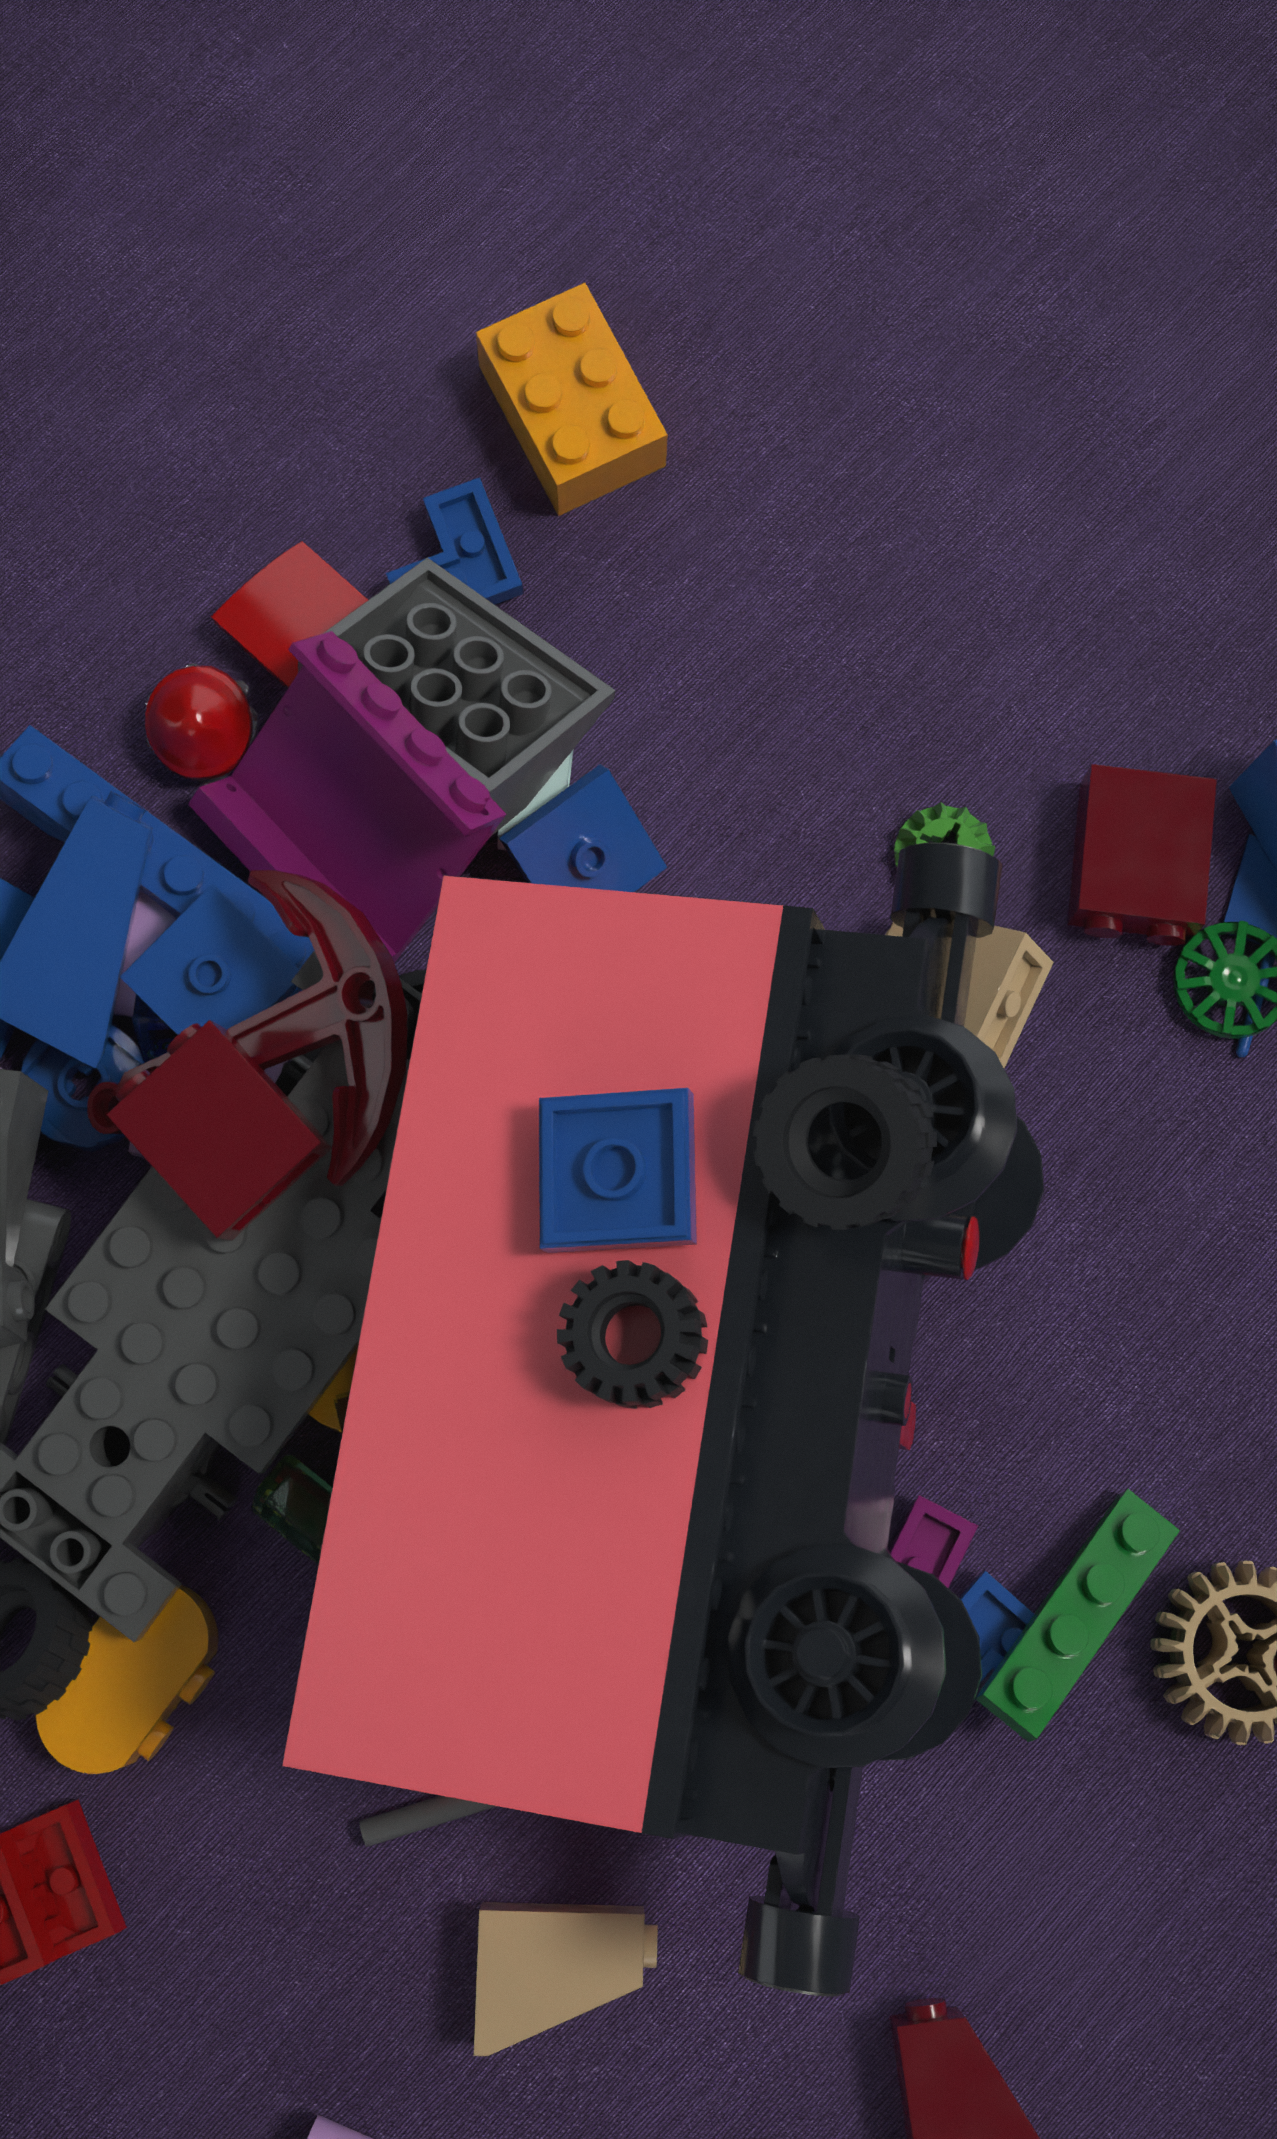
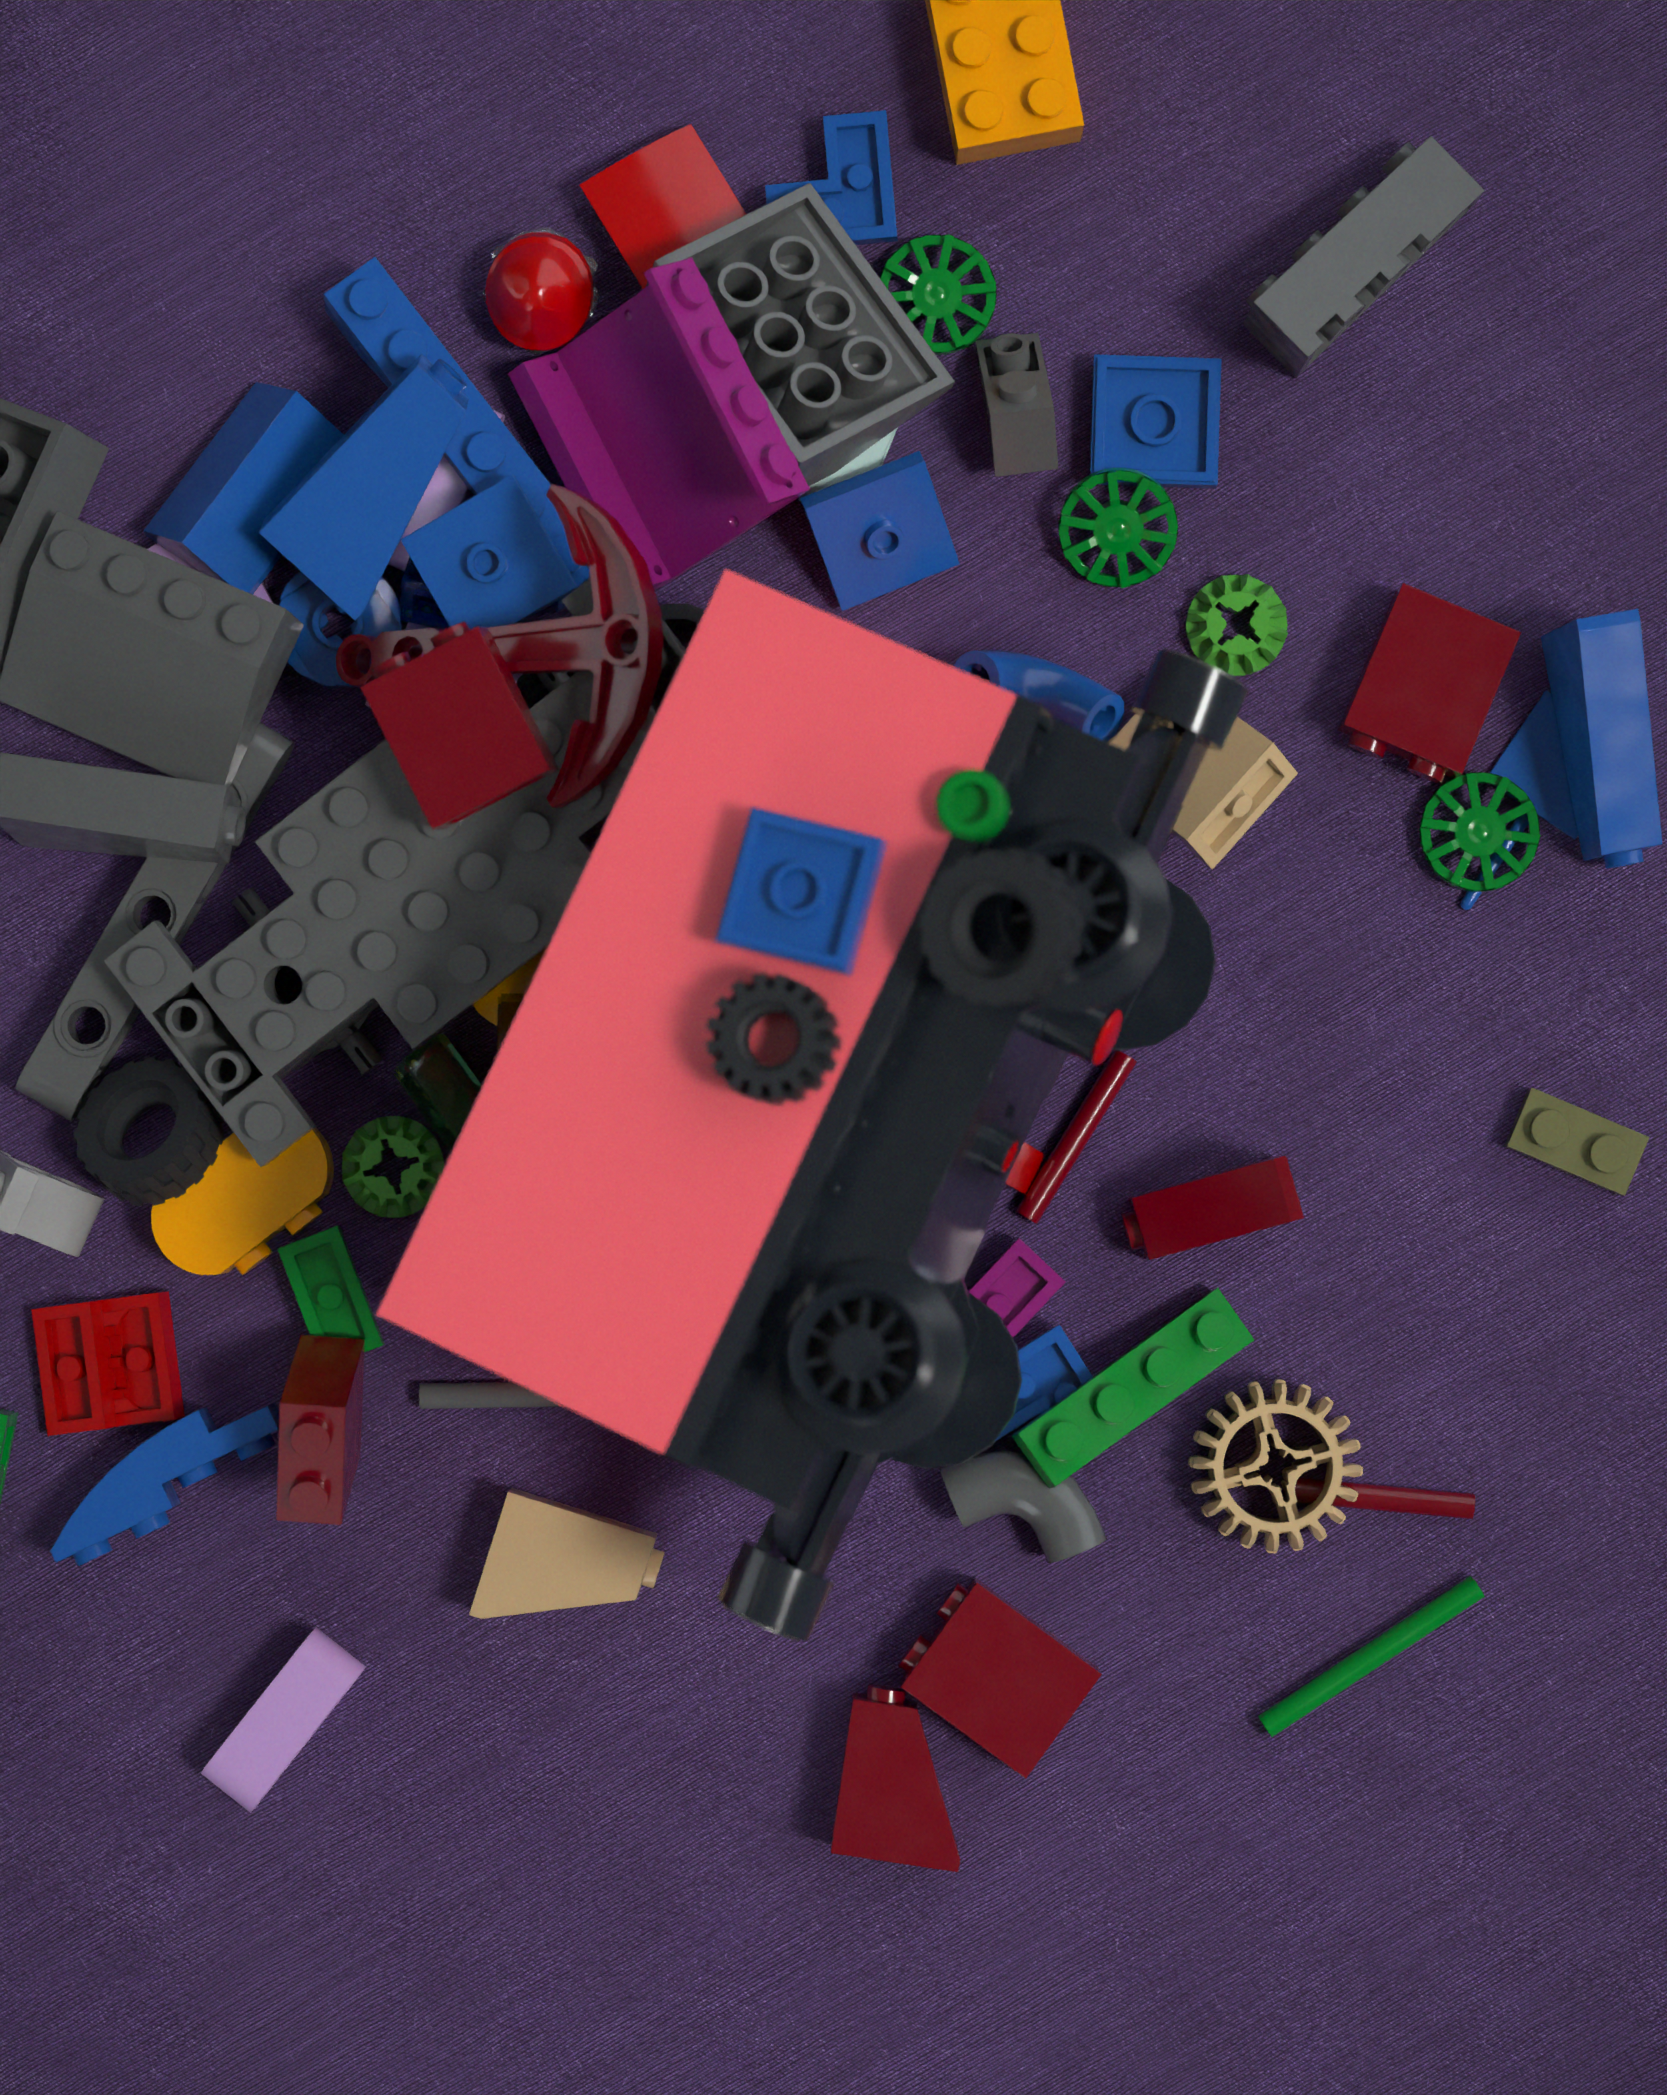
camera: 20 degrees right, 10 degrees up
(97, 2014) = (140, 1488): none -> blue slope
(243, 1595) = (407, 1140): none -> bright green gear
(244, 1756) = (330, 1288): none -> green plate
(265, 1905) = (320, 1429): none -> dark red brick
(575, 627) = (938, 291): none -> green wheel
(679, 706) = (1017, 404): none -> dark grey slope
(772, 1028) = (972, 805): none -> green tile
(806, 792) = (1118, 527): none -> green wheel
(811, 688) = (1157, 418): none -> blue plate
(941, 1379) = (1076, 1136): none -> dark red bar
(953, 490) = (1361, 255): none -> dark grey wedge
(989, 1750) = (1010, 1485): none -> dark grey cylinder
(1034, 1956) = (997, 1676): none -> dark red brick
(1104, 1408) = (1212, 1208): none -> dark red slope

